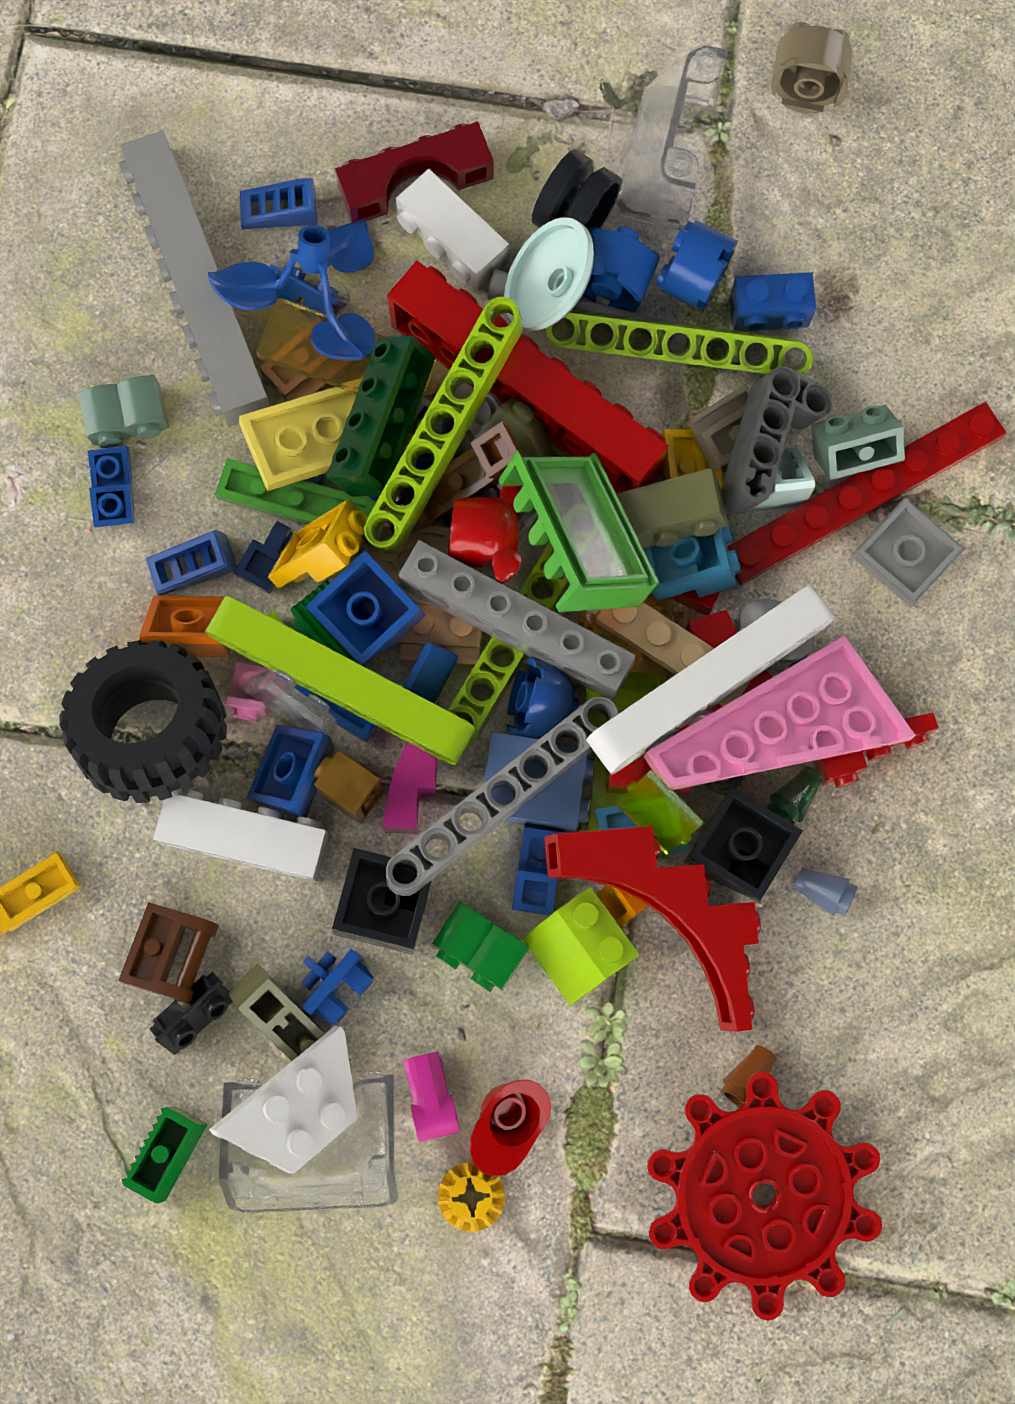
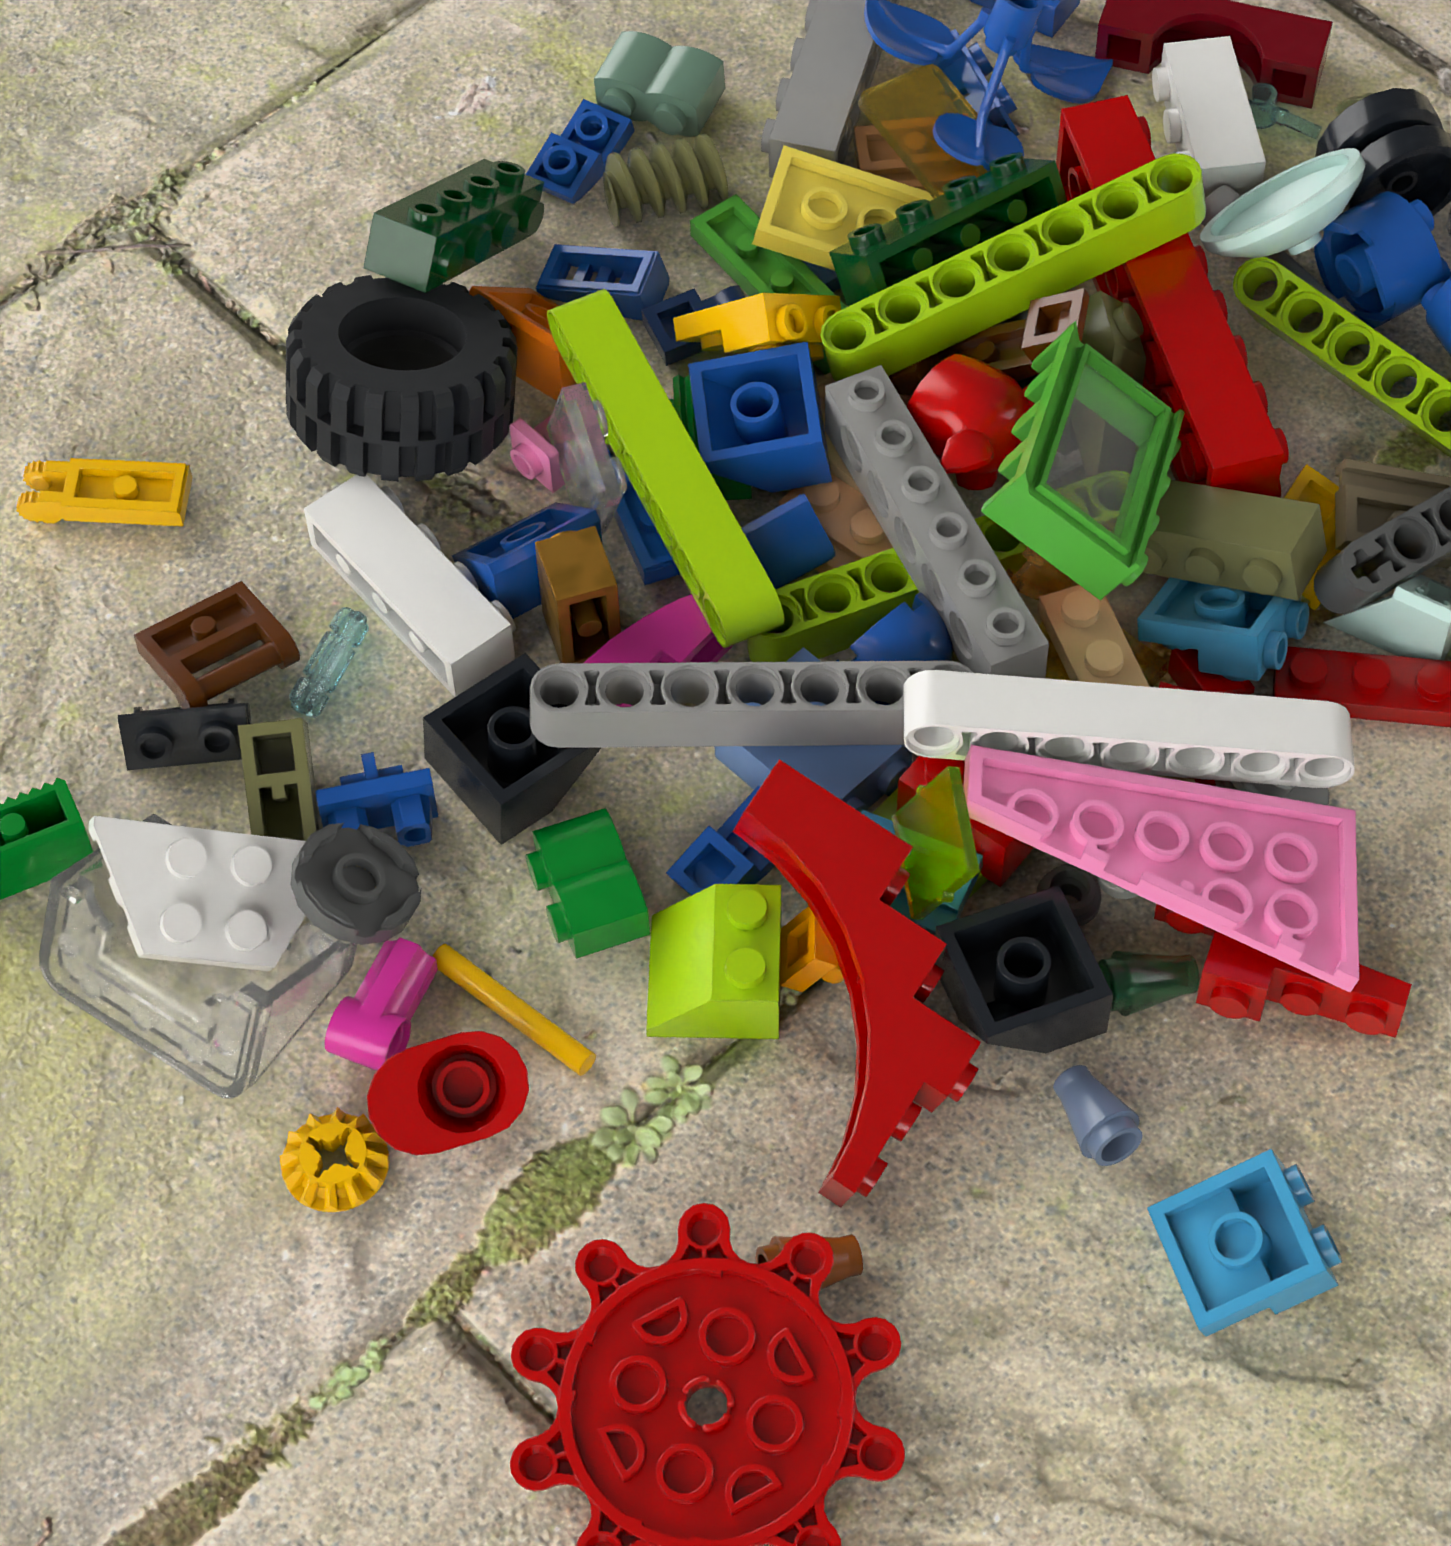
camera: 40 degrees right, 20 degrees down
(96, 601) = (454, 224): none -> dark green brick
(177, 475) = (663, 178): none -> olive piece
(234, 913) = (329, 662): none -> clear light blue axle
(368, 1045) = (355, 883): none -> dark grey tile
(481, 197) = (1267, 112): none -> clear light blue hand
(493, 1044) = (514, 1010): none -> yellow bar
(947, 910) = (1245, 1242): none -> dark azure plate

